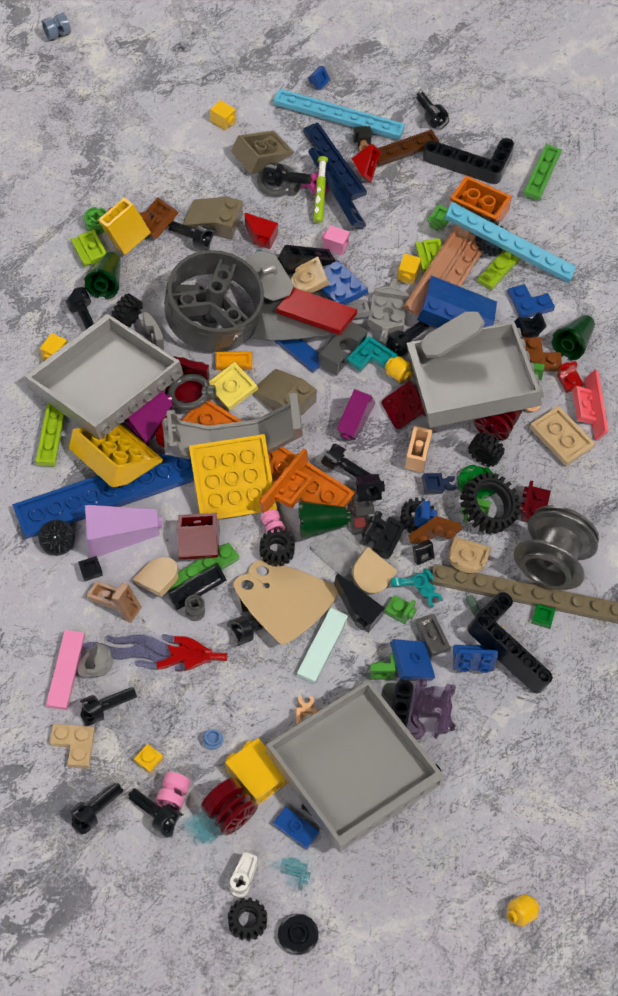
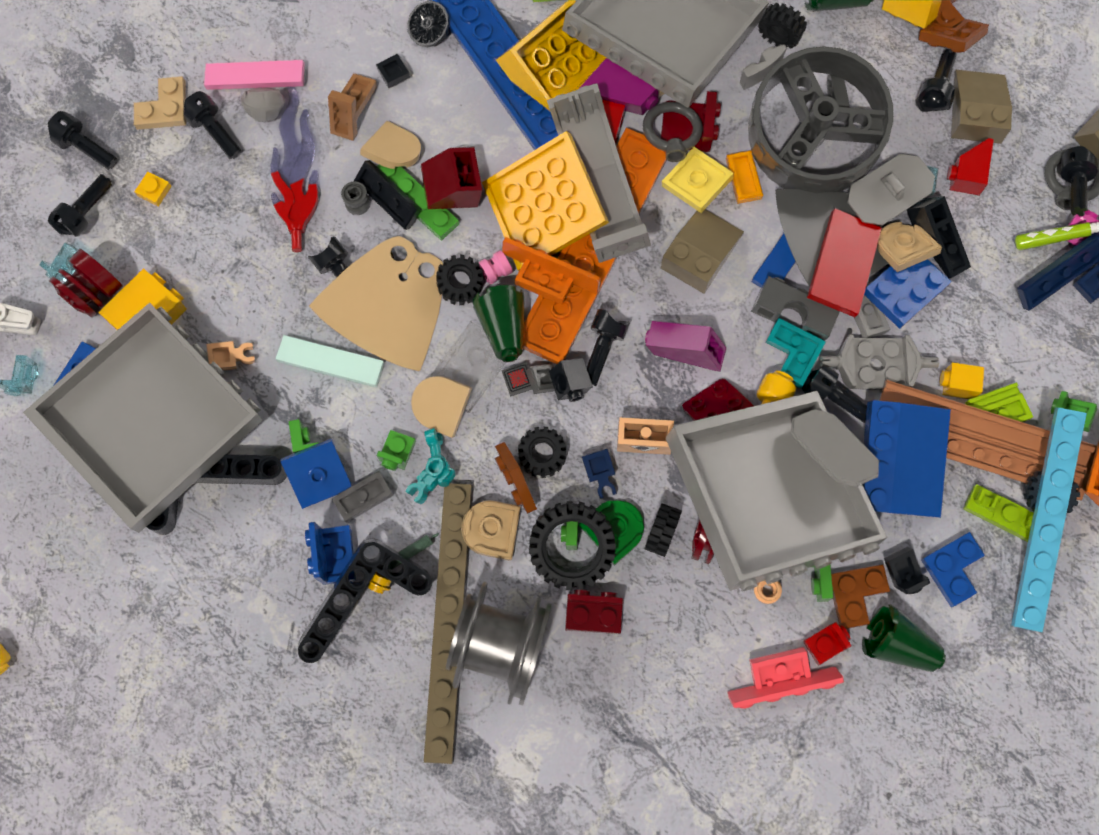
camera: 85 degrees right, 15 degrees up
(119, 527) = (445, 78): lavender slope -> none
(173, 789) = (103, 220): bright pink wheel -> none
(212, 739) = (184, 254): medium blue plate -> none
(335, 239) = (986, 271): bright pink brick -> none
(360, 606) = (388, 395): black slope -> none
(388, 537) = (501, 417): black plate -> none
(423, 552) = (484, 467): black tile -> none
(424, 513) = (531, 453): blue tile -> none
(432, 706) = (255, 509): clear purple animal -> none
(543, 616) = (417, 644): green tile -> none
(562, 435) = (719, 641): tan plate -> none

